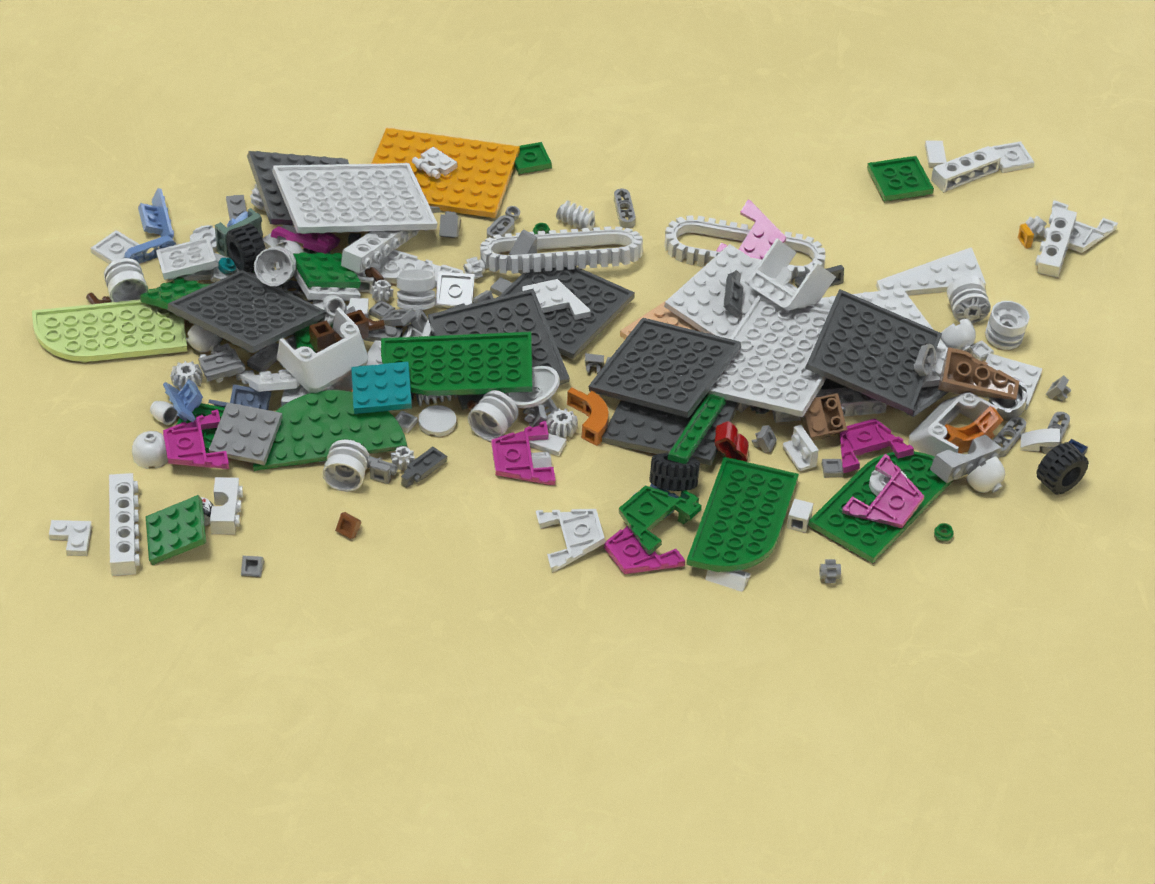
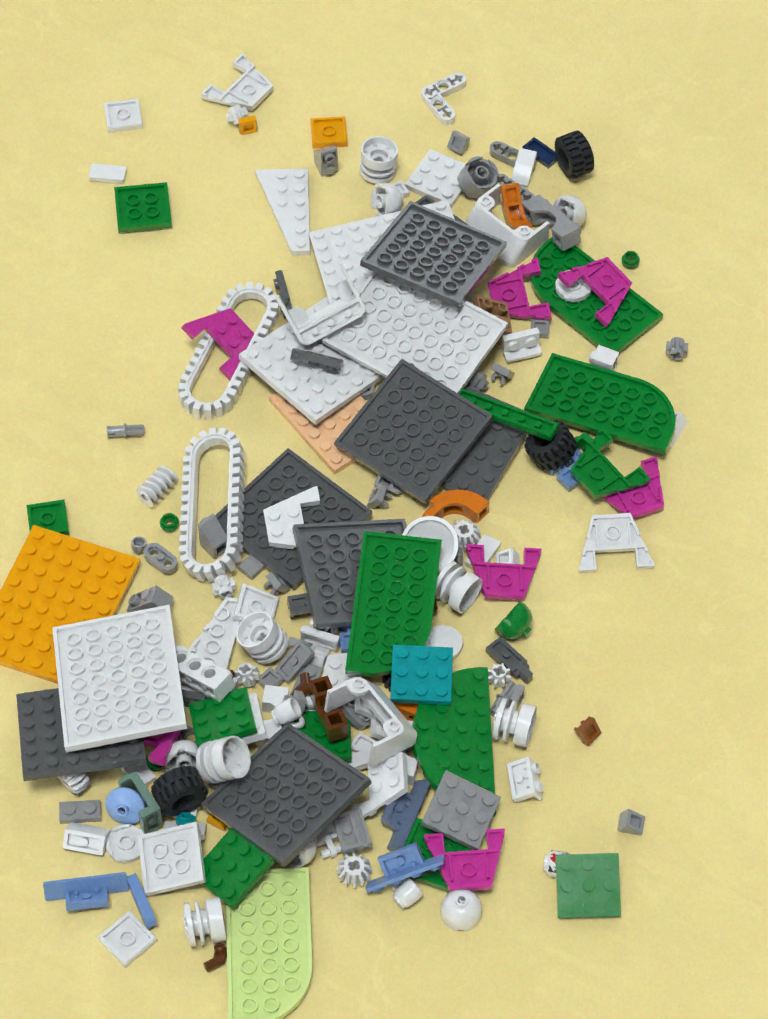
camera: 80 degrees left, 10 degrees up
(75, 532) = (573, 986): white plate -> none
(122, 524) = (561, 945): white brick -> none
(210, 211) = (85, 838): none -> white panel
(225, 517) = (536, 835): white arch -> none
(290, 486) = (525, 779): none -> white bracket
(435, 163) = (50, 600): white plate -> none
(463, 462) = (516, 622): none -> green cylinder
(627, 202) = (157, 450): light grey beam -> none
(636, 193) = (125, 430): none -> light grey axle
(731, 442) = (513, 395): red brick -> none
(748, 420) = (478, 381): none -> light grey gear
(925, 360) = (446, 214): light grey plate -> none
(965, 169) = (139, 152): white brick -> none
(966, 374) = (465, 190): medium nougat wedge -> none
(968, 298) = (340, 181): white wheel -> none
(998, 289) = (326, 160): none -> light grey slope
(1041, 296) = (328, 132): none -> light orange tile
(1056, 242) = (262, 95): white brick -> none
(1119, 367) = (433, 97): none -> white beam

